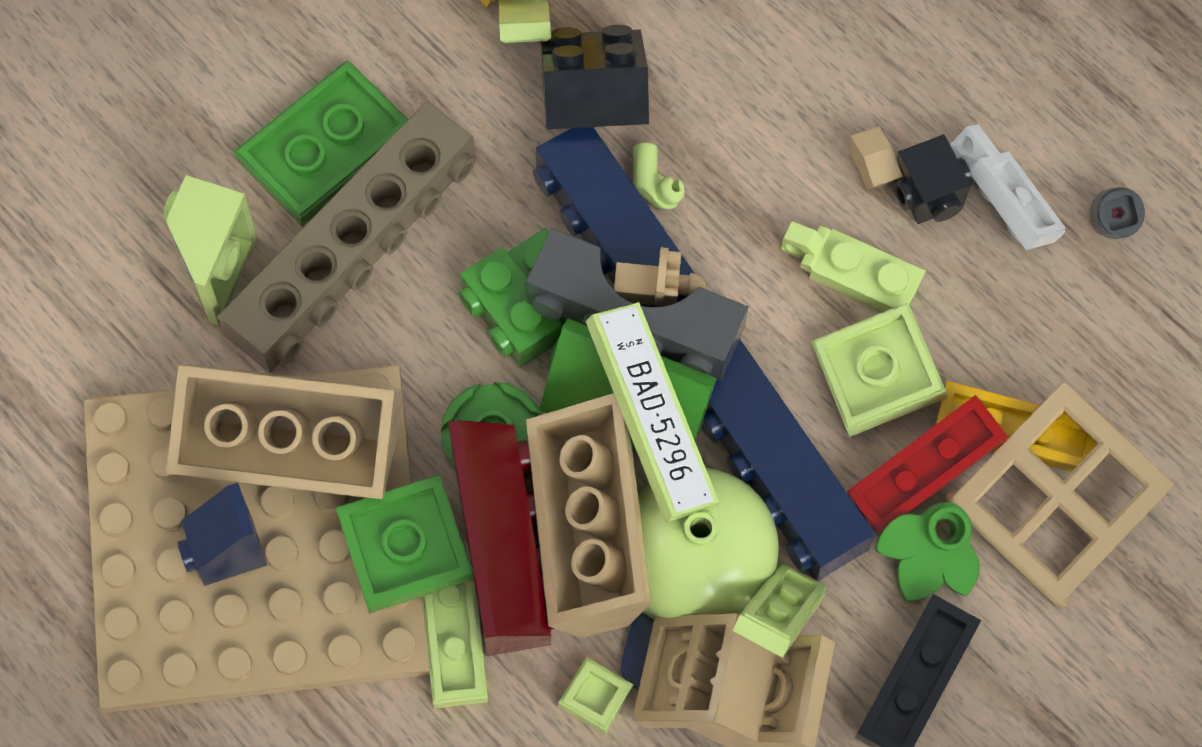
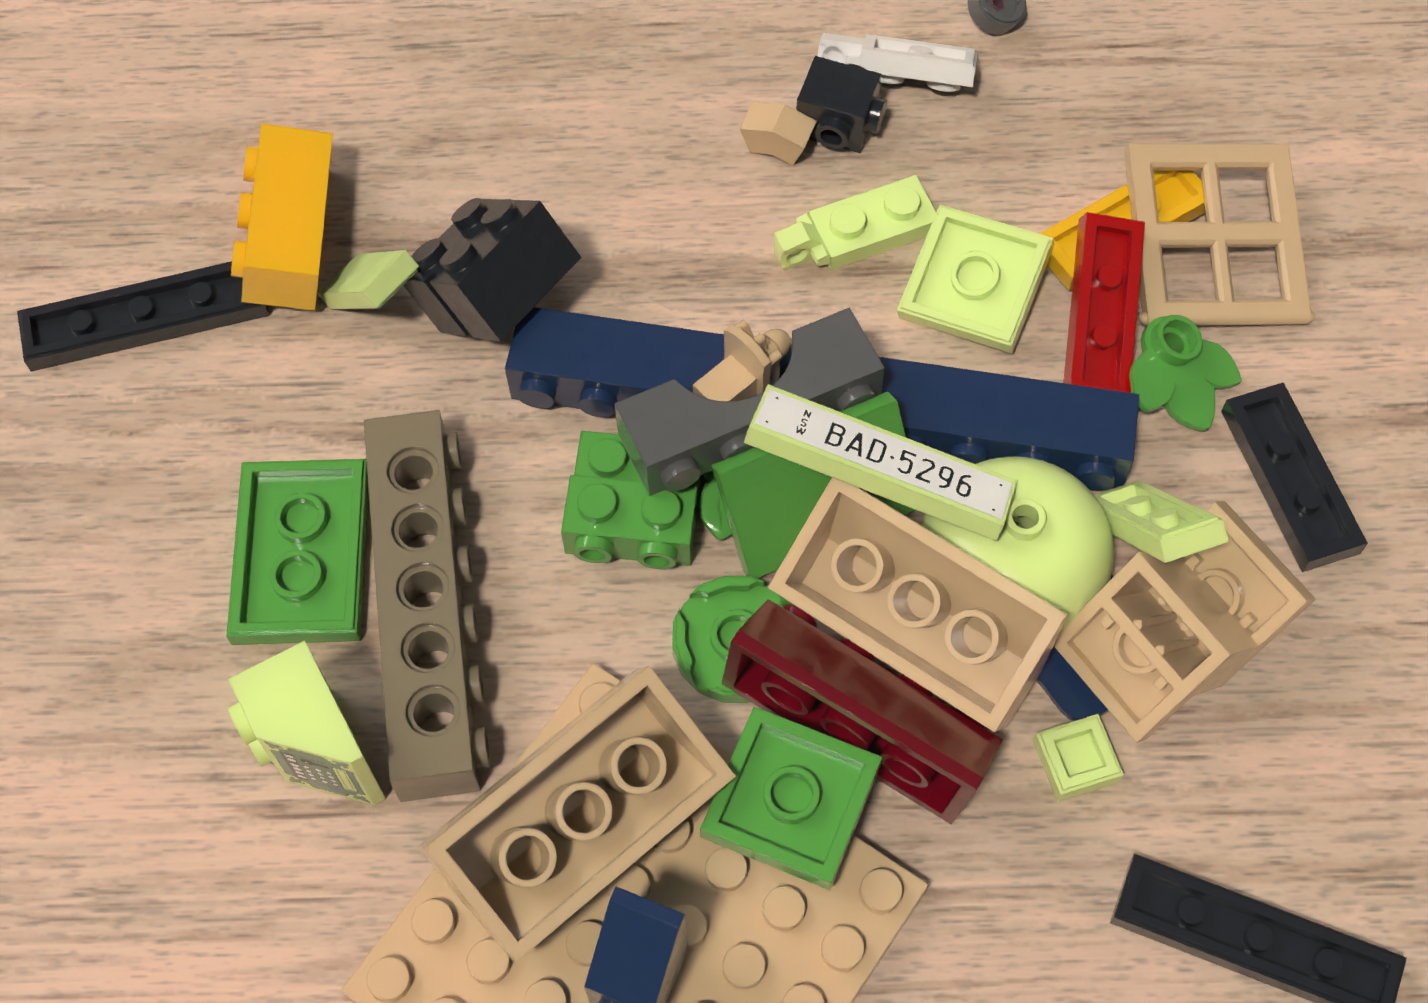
camera: 45 degrees left, 5 degrees down
(455, 645) = (926, 845): yellowish green tile -> none
(650, 184) = (645, 307): yellowish green arm -> none

